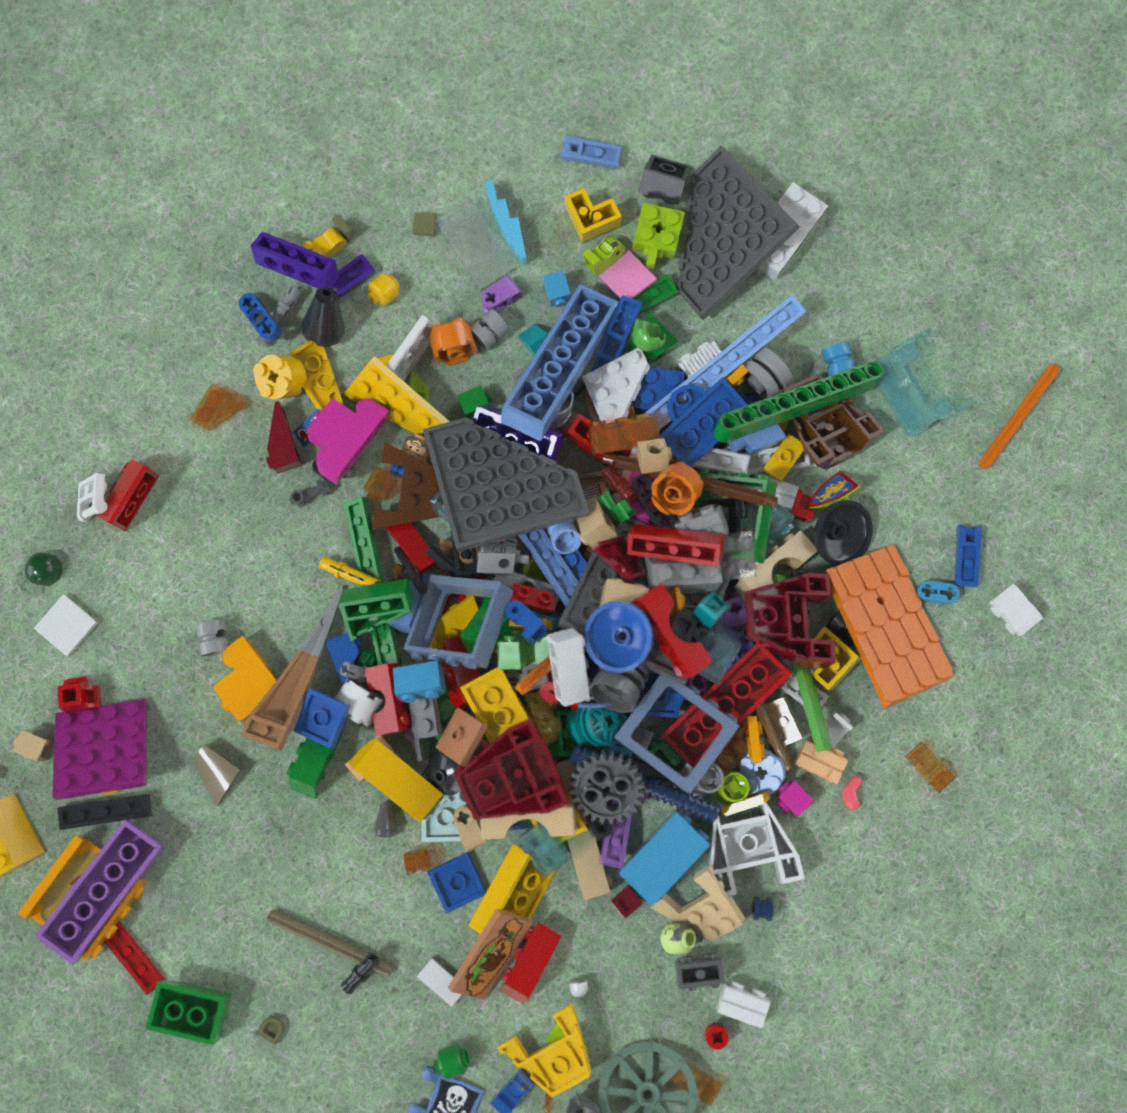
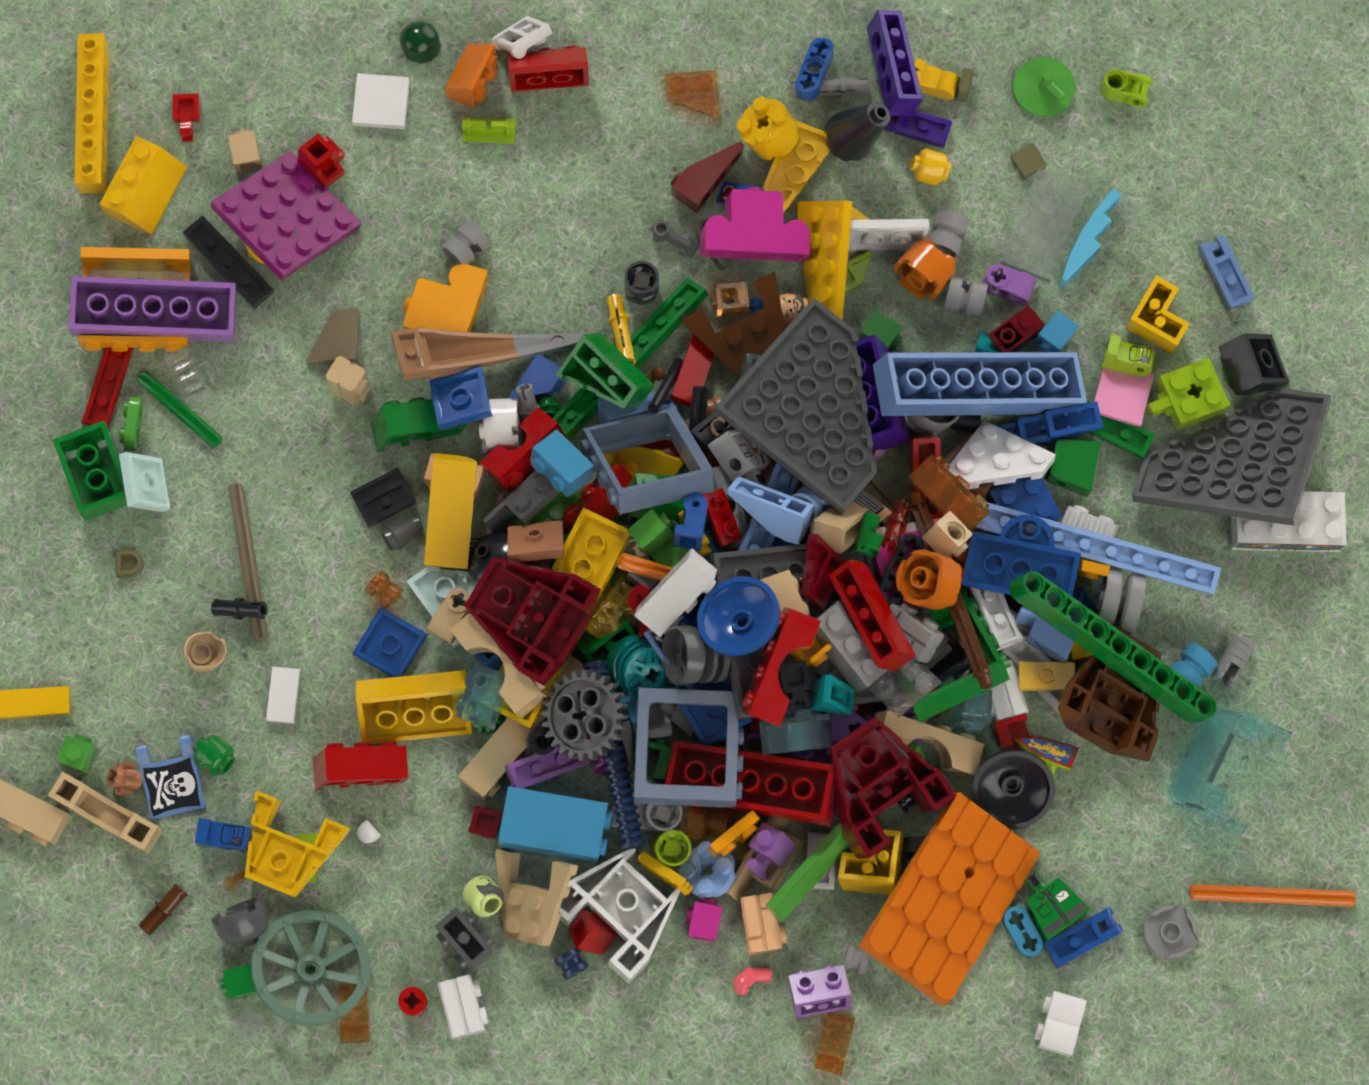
camera: 50 degrees right, 5 degrees down
(93, 549) = (472, 75): none -> orange slope
(141, 565) = (489, 130): none -> lime hinge
(168, 954) = (131, 432): none -> bright green plate
(186, 918) = (179, 409): none -> green axle
(222, 981) = (144, 482): none -> light aqua tile
(252, 786) = (348, 381): none -> tan brick
(325, 536) = (641, 282): none -> black wheel
(351, 817) = (383, 497): none -> black plate
(373, 1019) = (204, 651): none -> tan hair
(381, 178) = (1044, 87): none -> bright green shield
(423, 123) = (1128, 89): none -> lime piece
(435, 308) = (947, 232): none -> light grey wheel
(490, 954) = (342, 719): tile -> none
(537, 312) = (1017, 331): none -> dark red slope
(555, 559) = (774, 510): none -> light blue slope
(647, 336) = (1071, 453): bright green hair -> none
(751, 881) = (591, 933): none -> red panel
(777, 720) = (771, 847): none -> medium lavender brick
(837, 727) = (806, 918): white bracket -> none
(851, 331) = (1236, 657): none -> light grey hinge
(885, 716) = (856, 959): none -> light grey wheel
(891, 753) = (820, 991): none -> medium lavender brick
(936, 561) = (1052, 906): none -> green torso
(992, 501) = (1161, 932): none -> light grey tile

